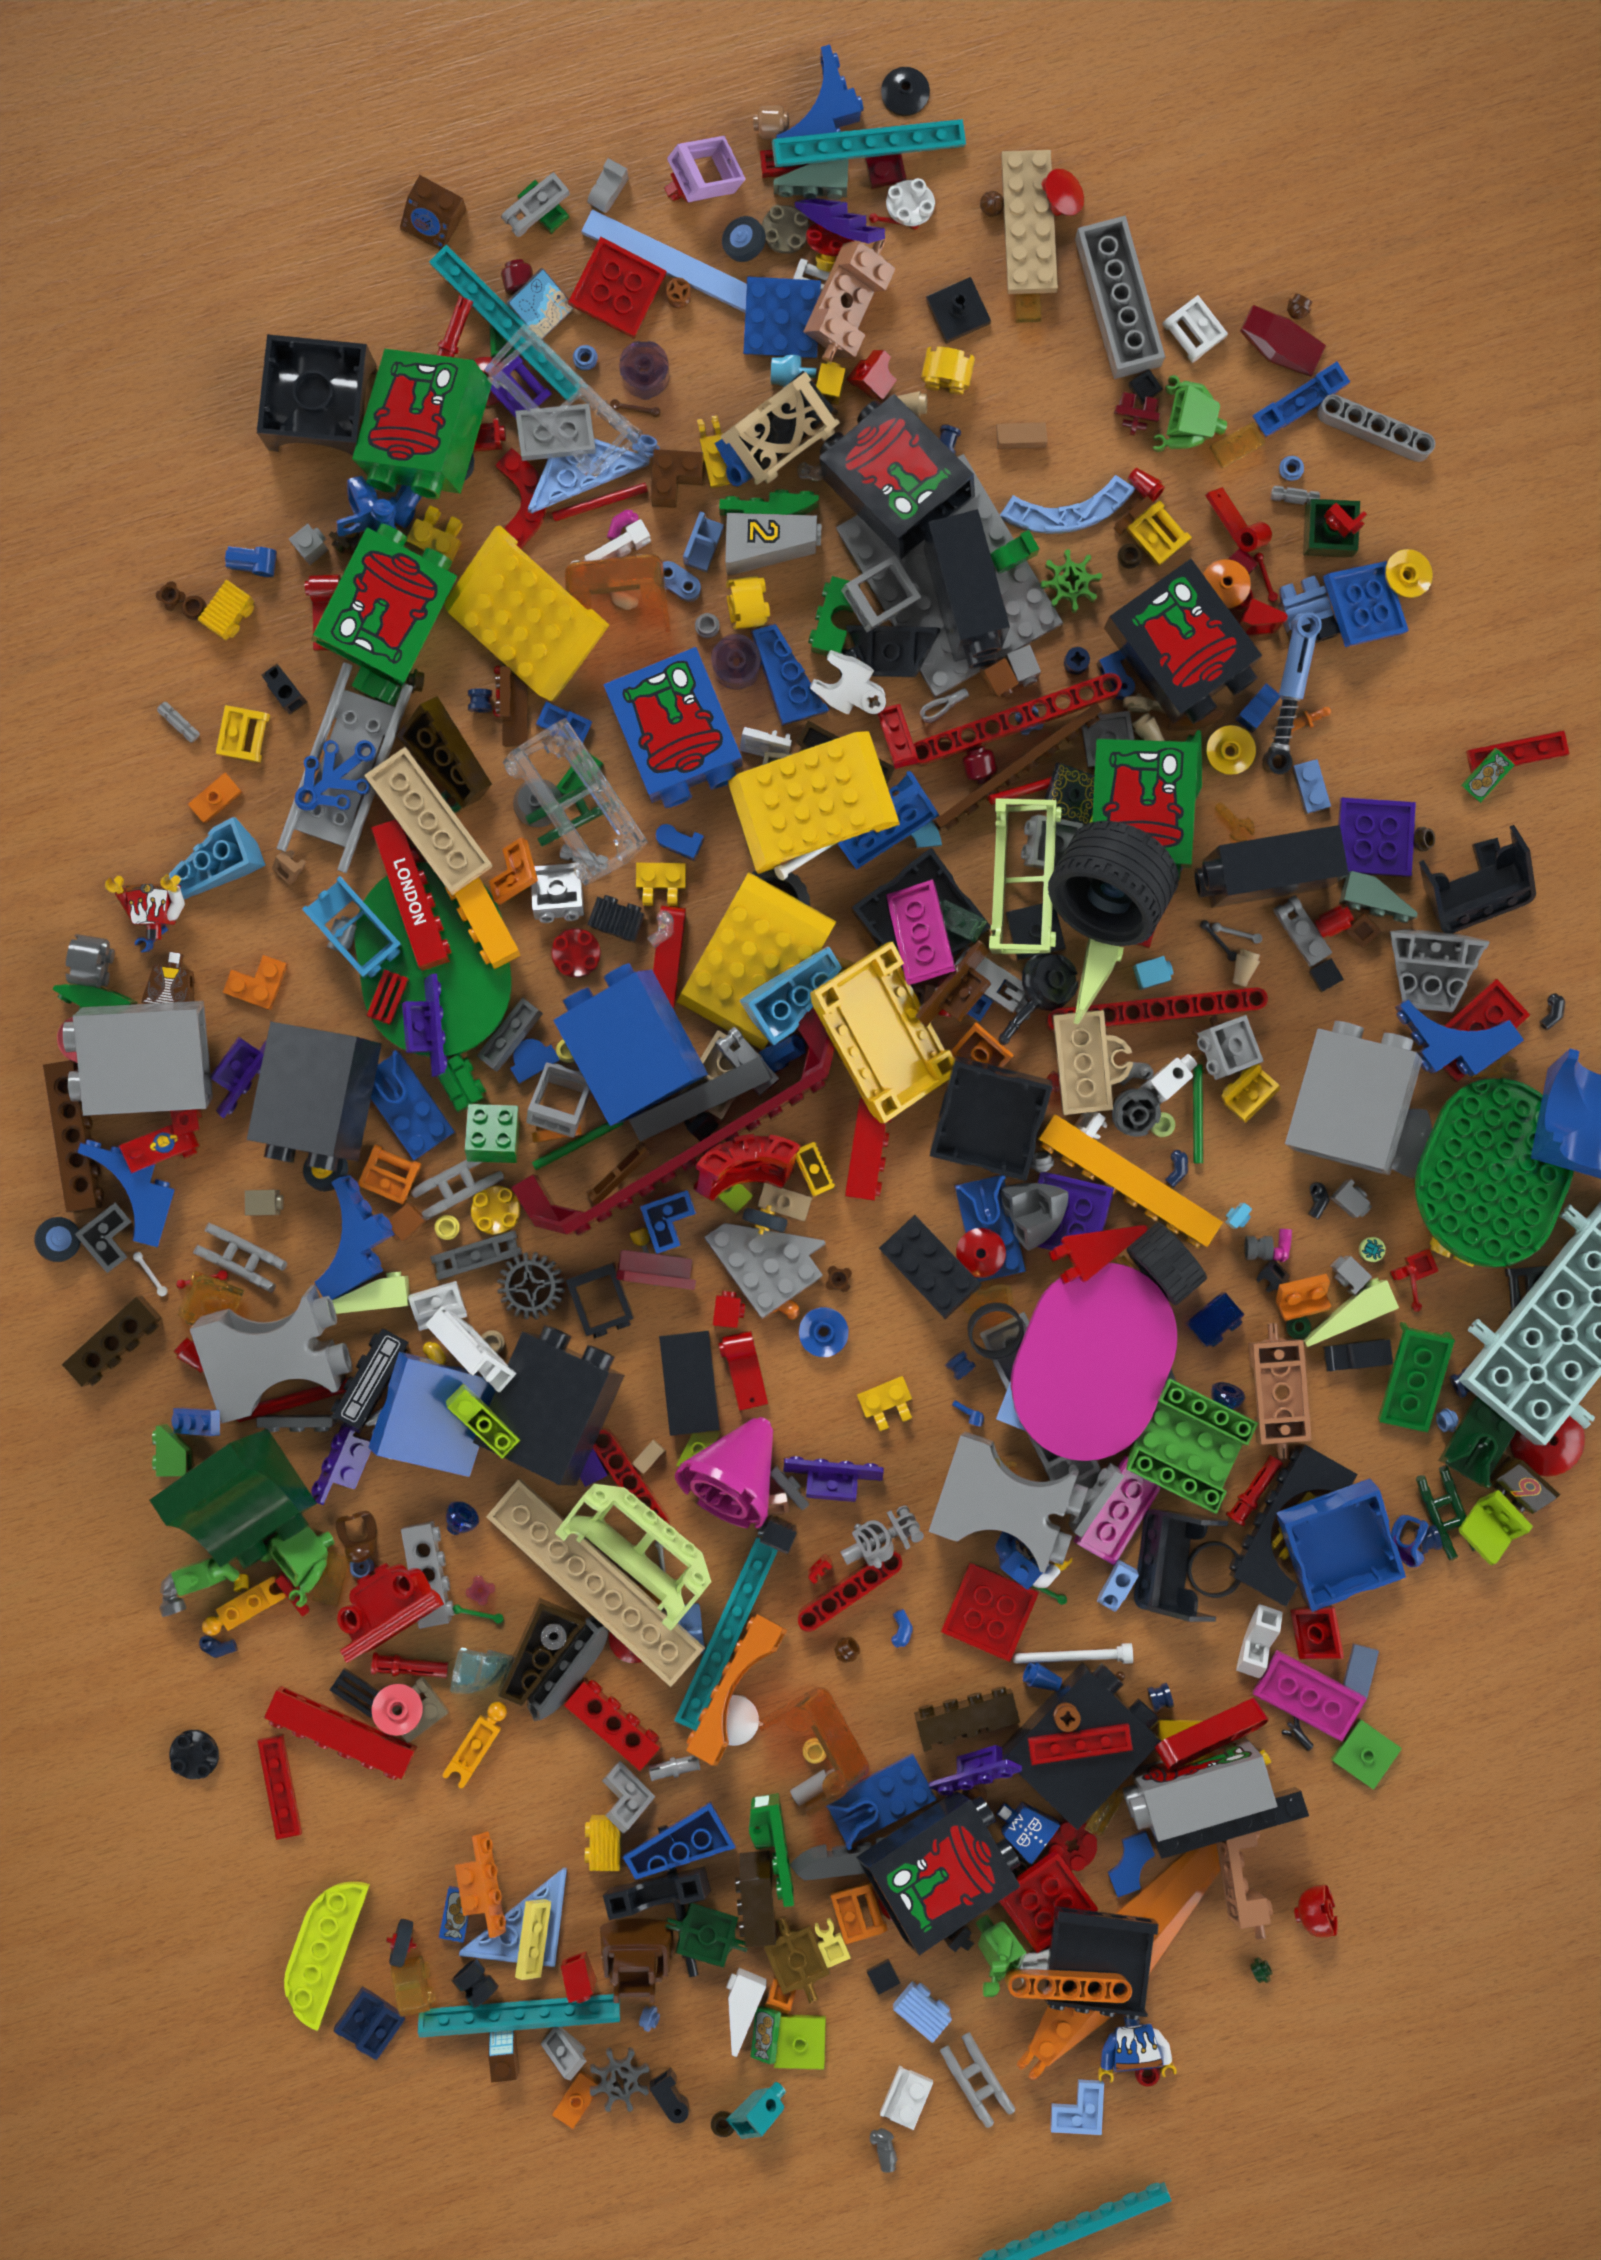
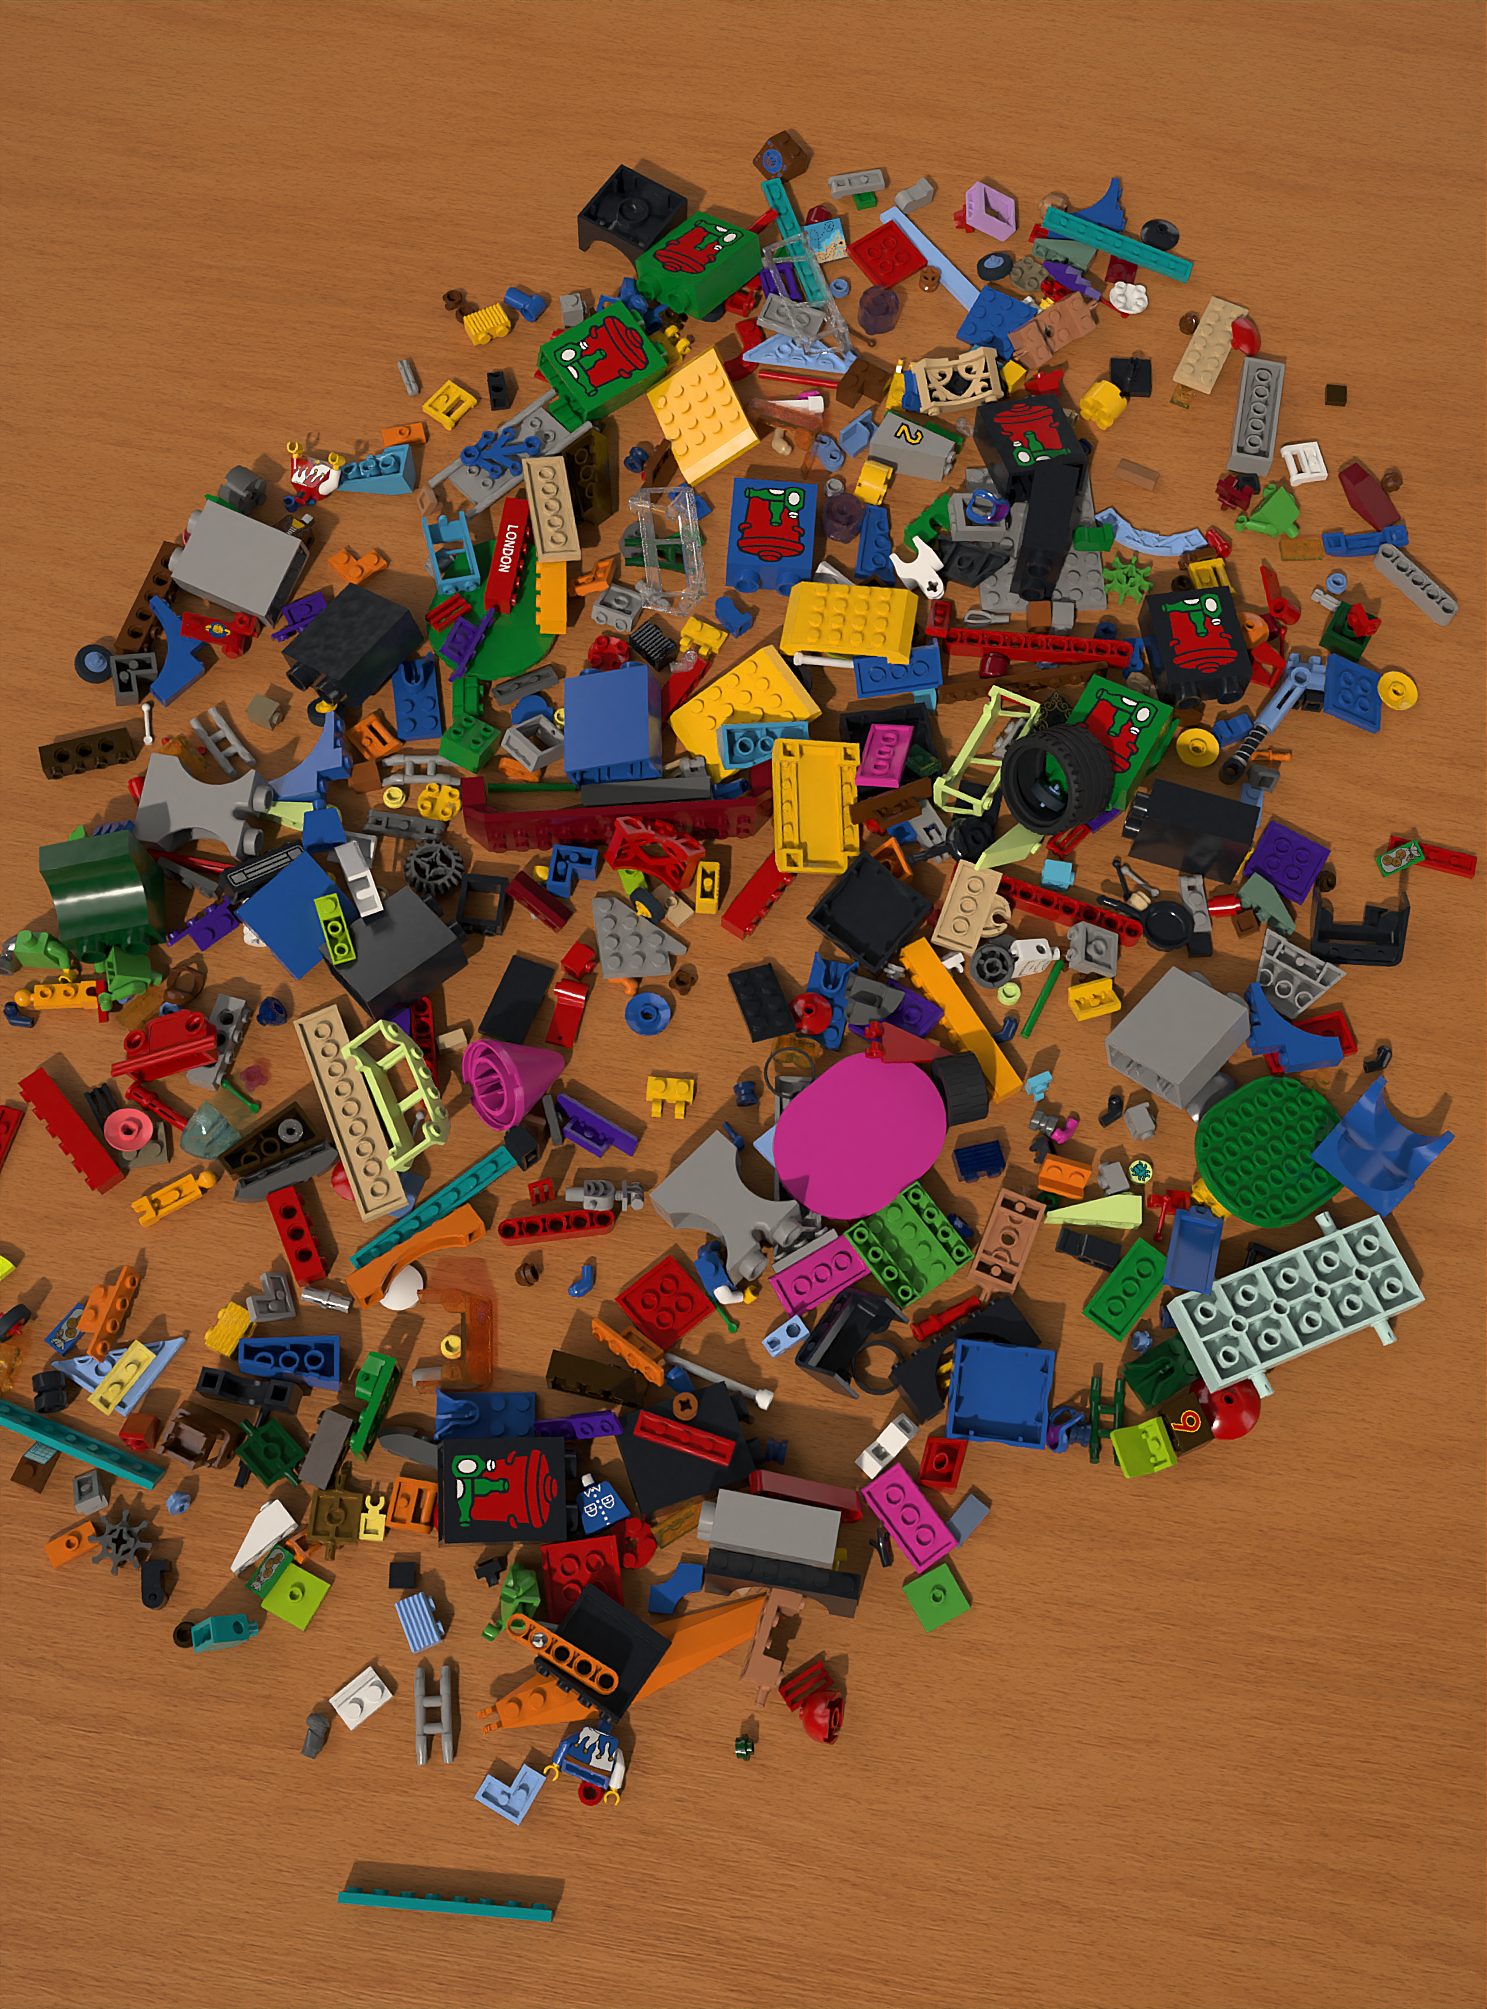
camera: 25 degrees right, 20 degrees down
(401, 1310) = (322, 829): none -> blue torso
(421, 507) = (669, 317): none -> dark brown plate
(904, 582) = (1000, 508): none -> blue piece
(985, 1670) = (634, 1348): none -> orange bracket
(1192, 217) = (1335, 395): none -> dark brown tile
(1285, 974) = (1164, 922): none -> black piece
(1297, 1893) = (824, 1674): none -> red tile
(1313, 753) = (1263, 777): none -> dark grey brick
(1462, 1316) = (1193, 1250): none -> blue piece

